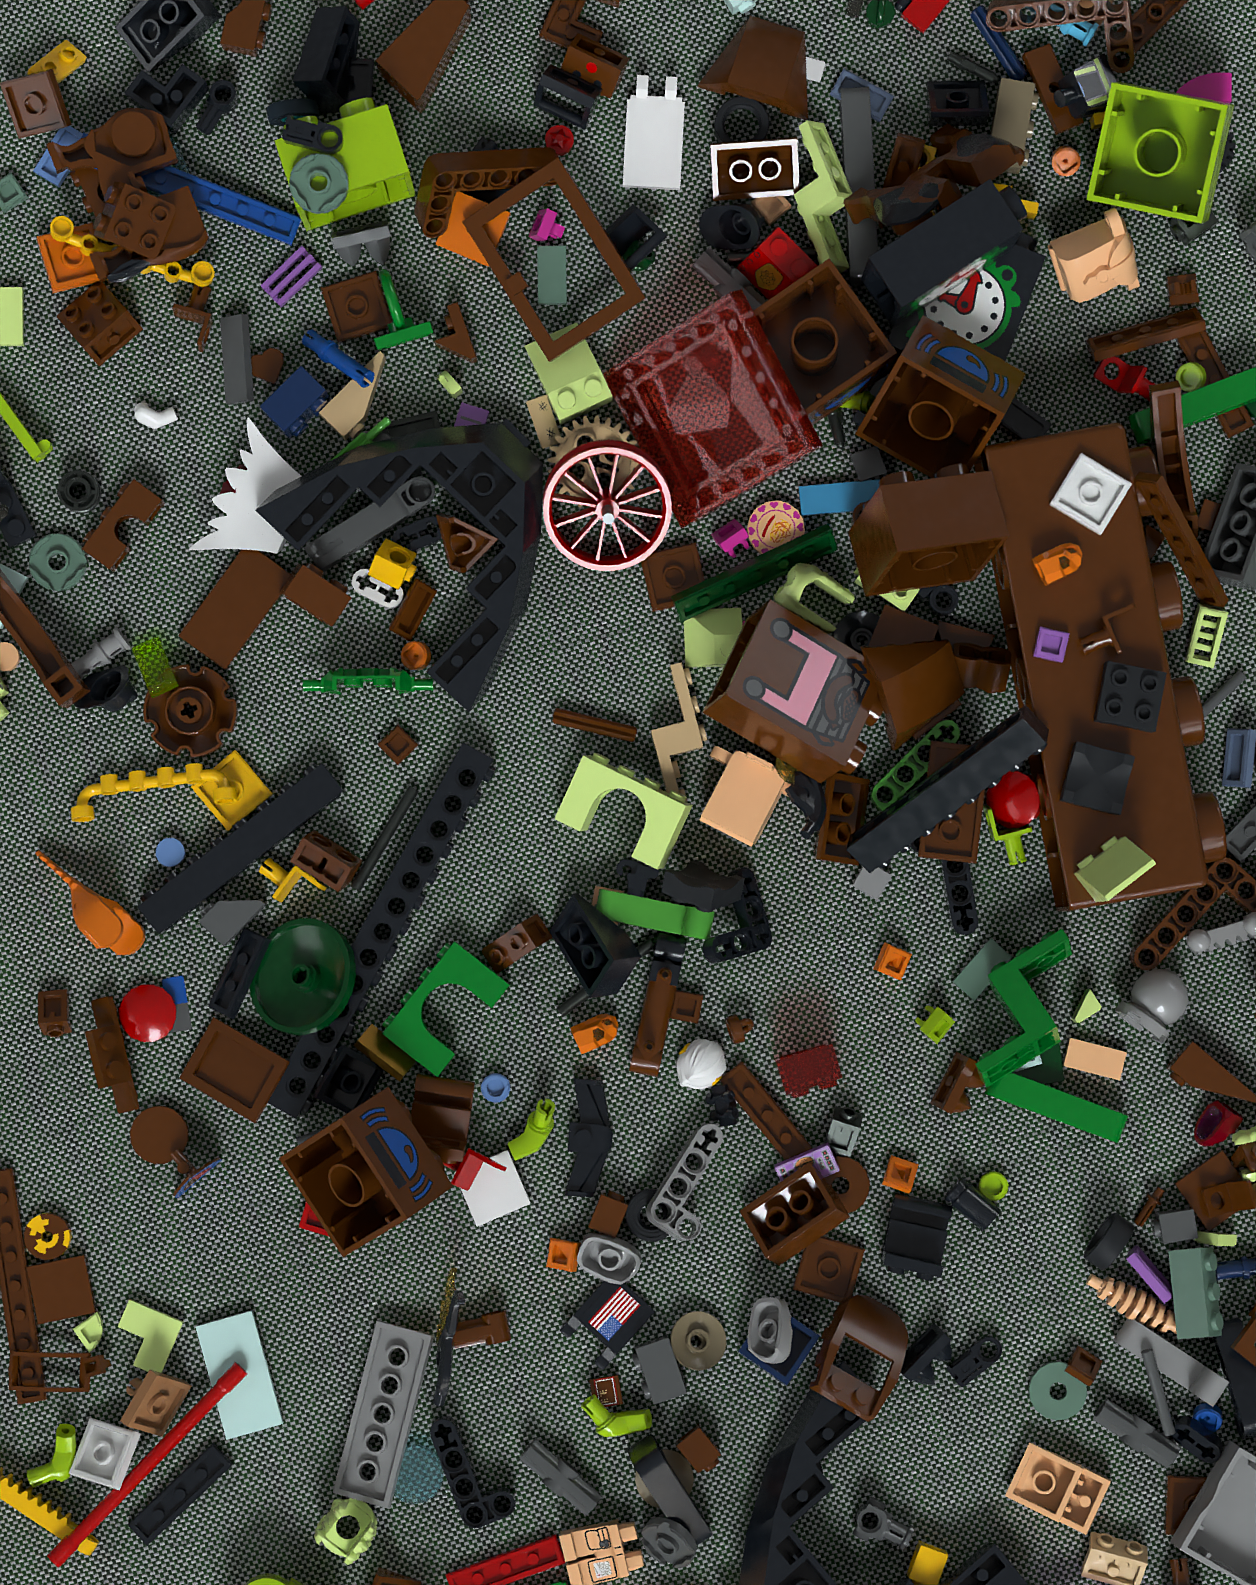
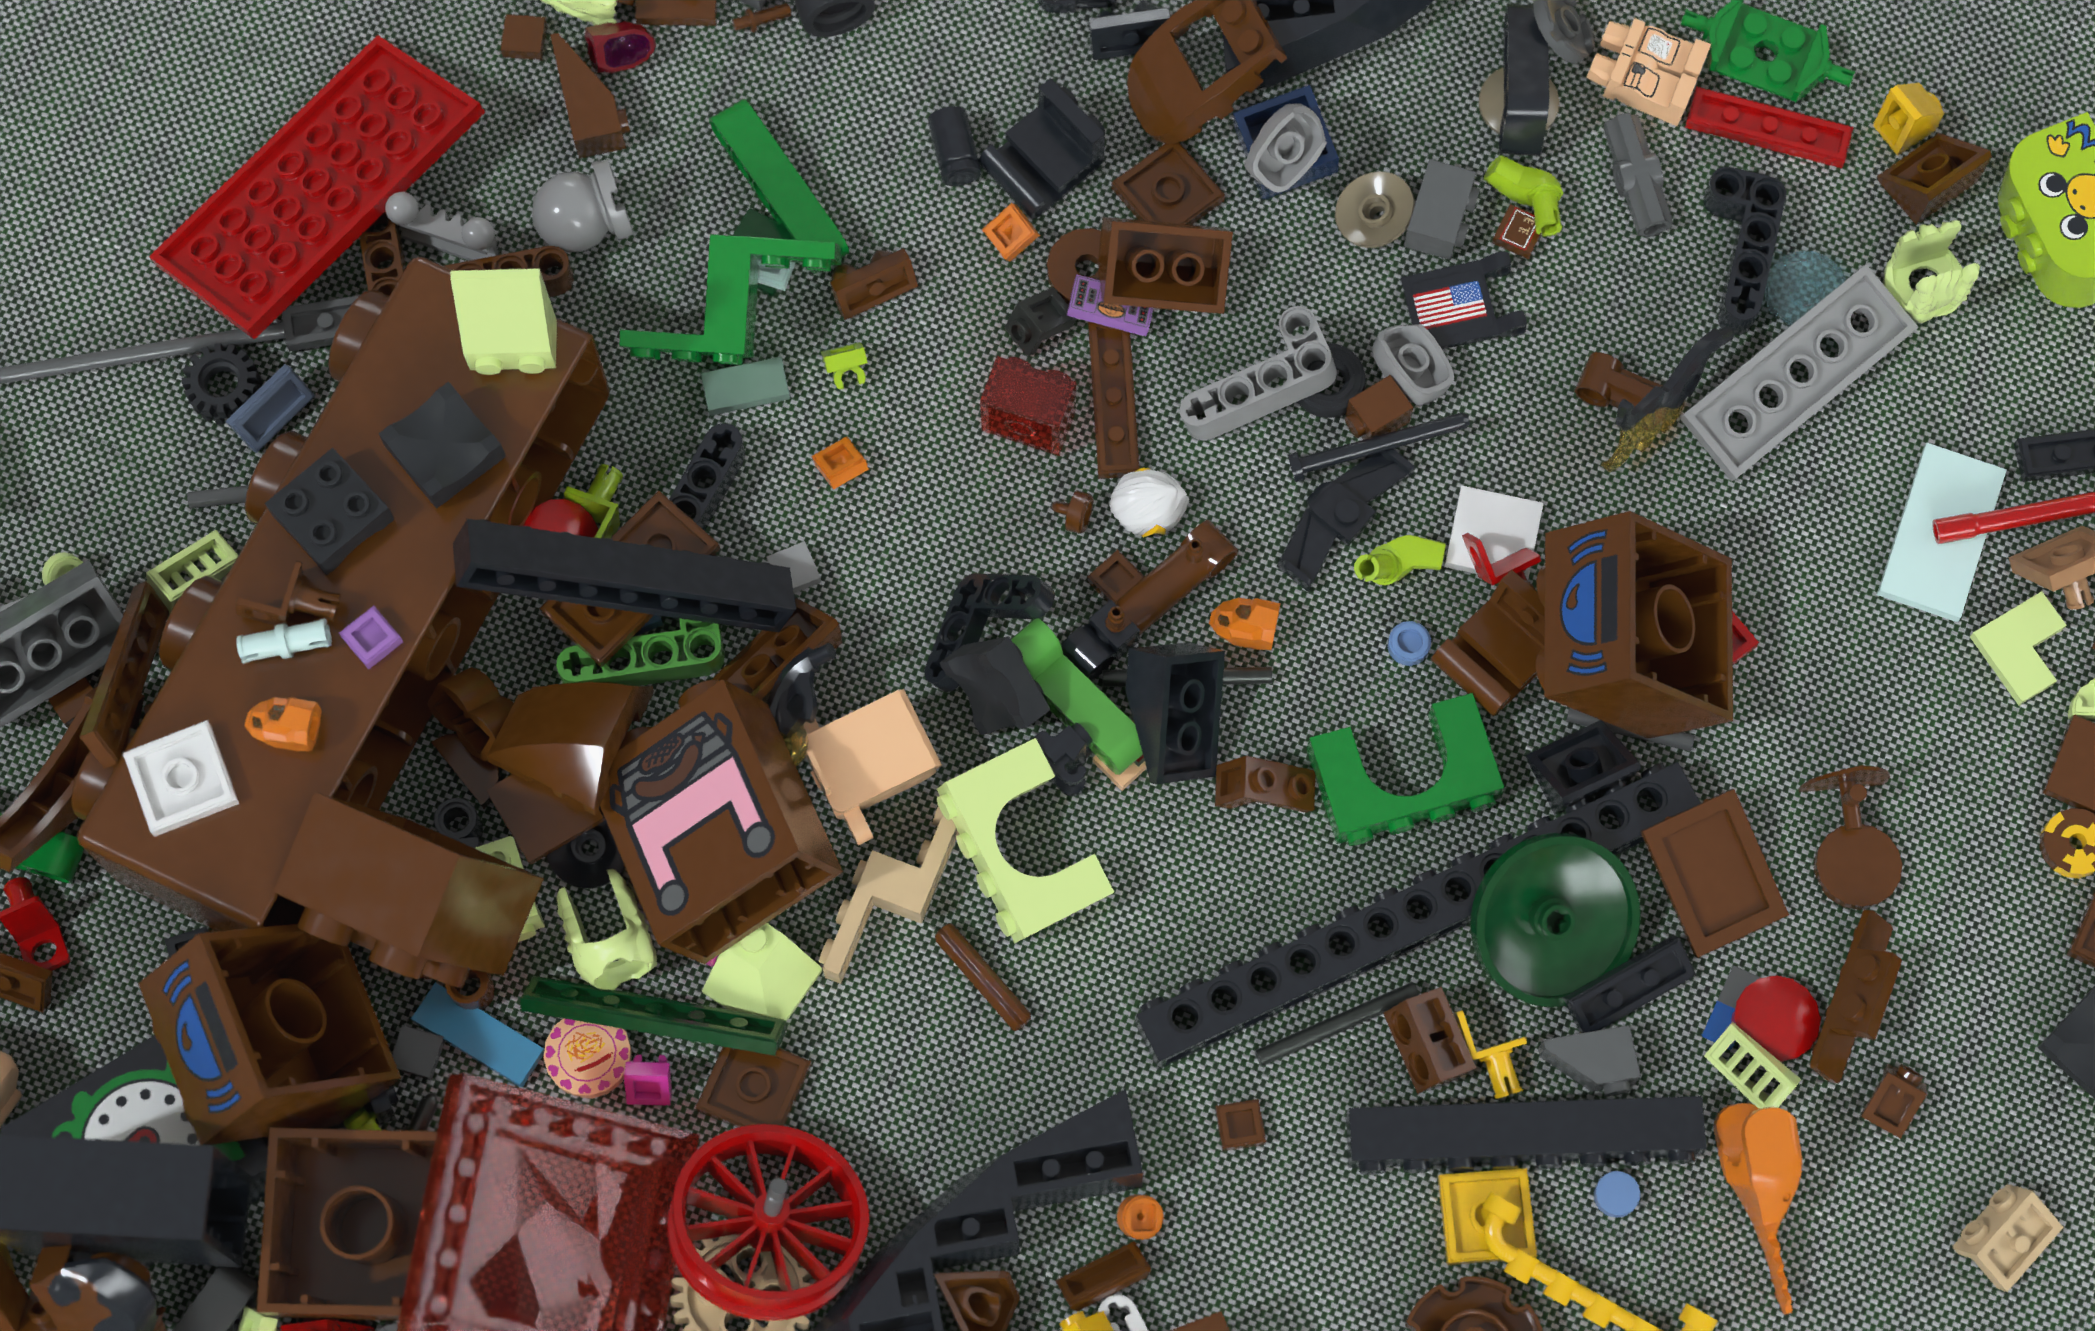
camera: 140 degrees left, 15 degrees down
(133, 962) = (1761, 1056): none -> yellowish green slope
(356, 677) = (1234, 1234): green plate -> none
(384, 1052) = (1517, 770): pearl gold tile -> none
(563, 1254) = (1464, 398): orange tile -> none
(593, 1193) = (1376, 444): none -> black bar
(699, 1449) = (1457, 100): reddish brown brick -> none
(725, 1105) = (1154, 438): black piece -> none
(993, 1185) = (915, 153): lime tile -> none
(1087, 1006) = (662, 263): yellowish green slope -> none
(1094, 1058) = (696, 205): light nougat tile -> none
(1095, 607) = (284, 641): none -> light aqua pin

